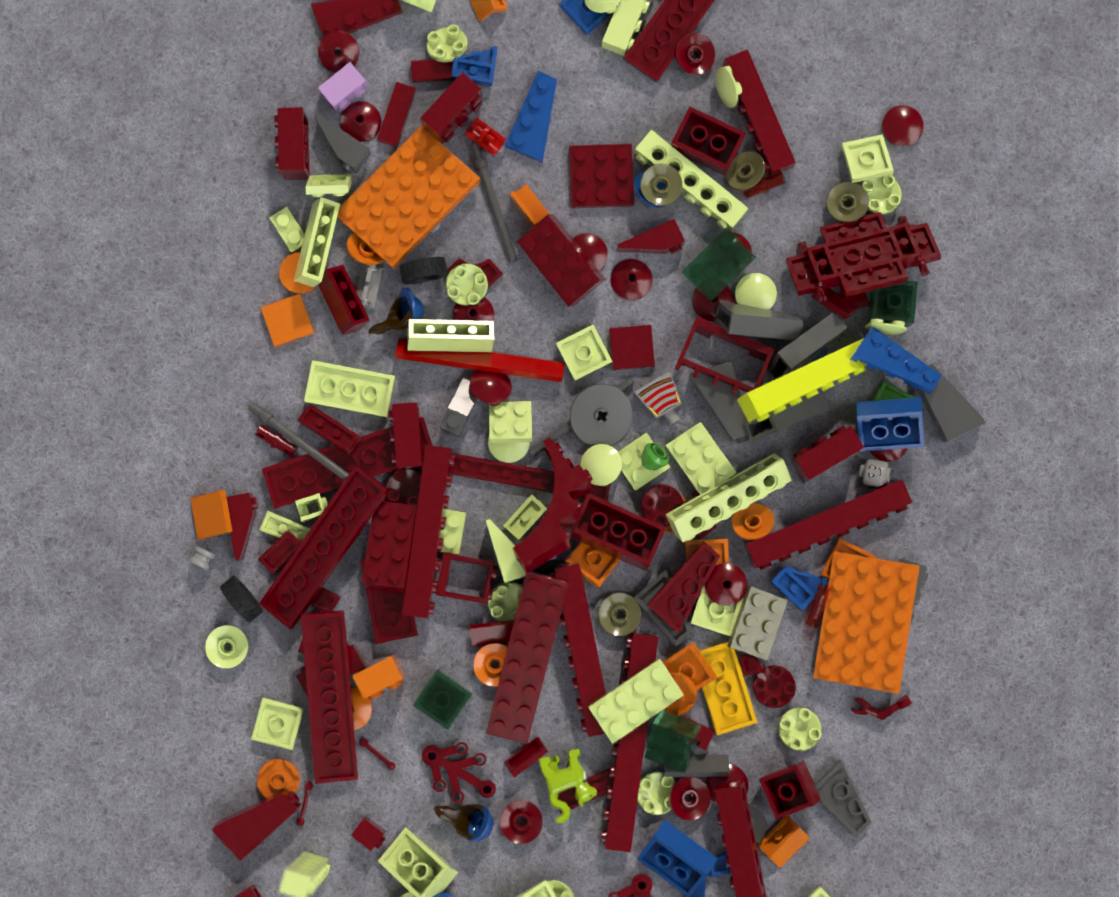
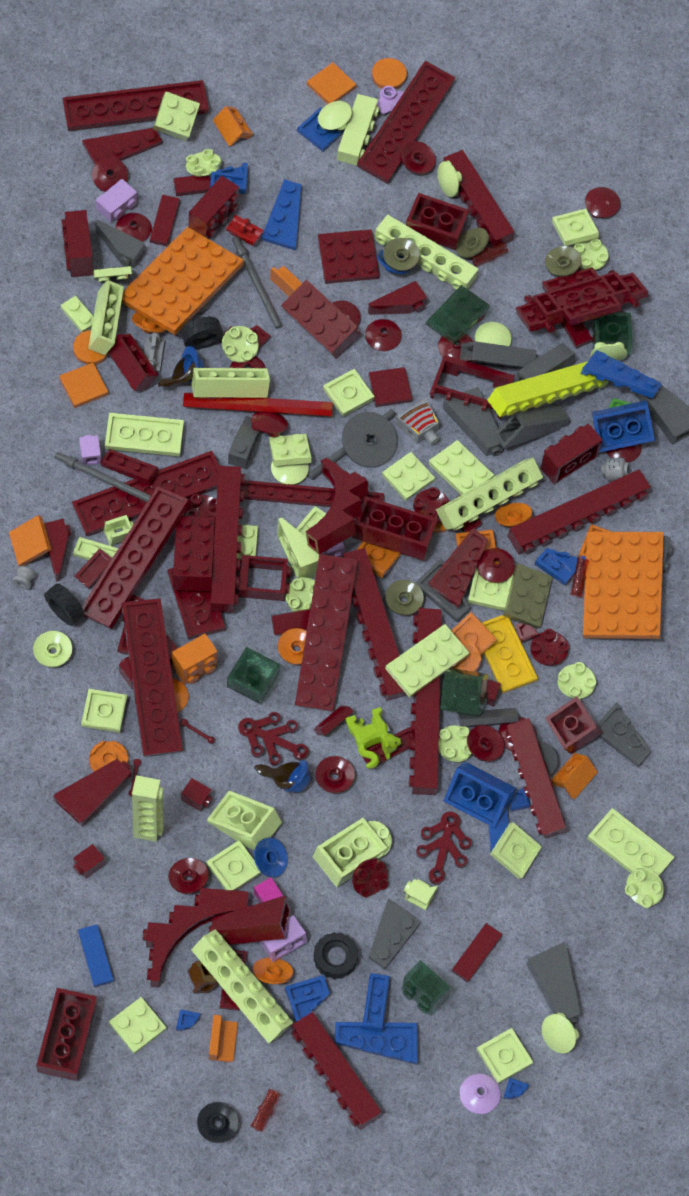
camera: 10 degrees left, 20 degrees down
(276, 441) = (82, 480): dark red pin -> none
(287, 404) = (90, 449): none -> lavender brick
(406, 435) = (199, 463): dark red brick -> none
(602, 463) = (378, 476): yellowish green dish -> none
(654, 456) = (420, 465): bright green cone -> none
(837, 304) = (561, 337): dark red tile -> none
(879, 713) = (647, 664): dark red piece -> none

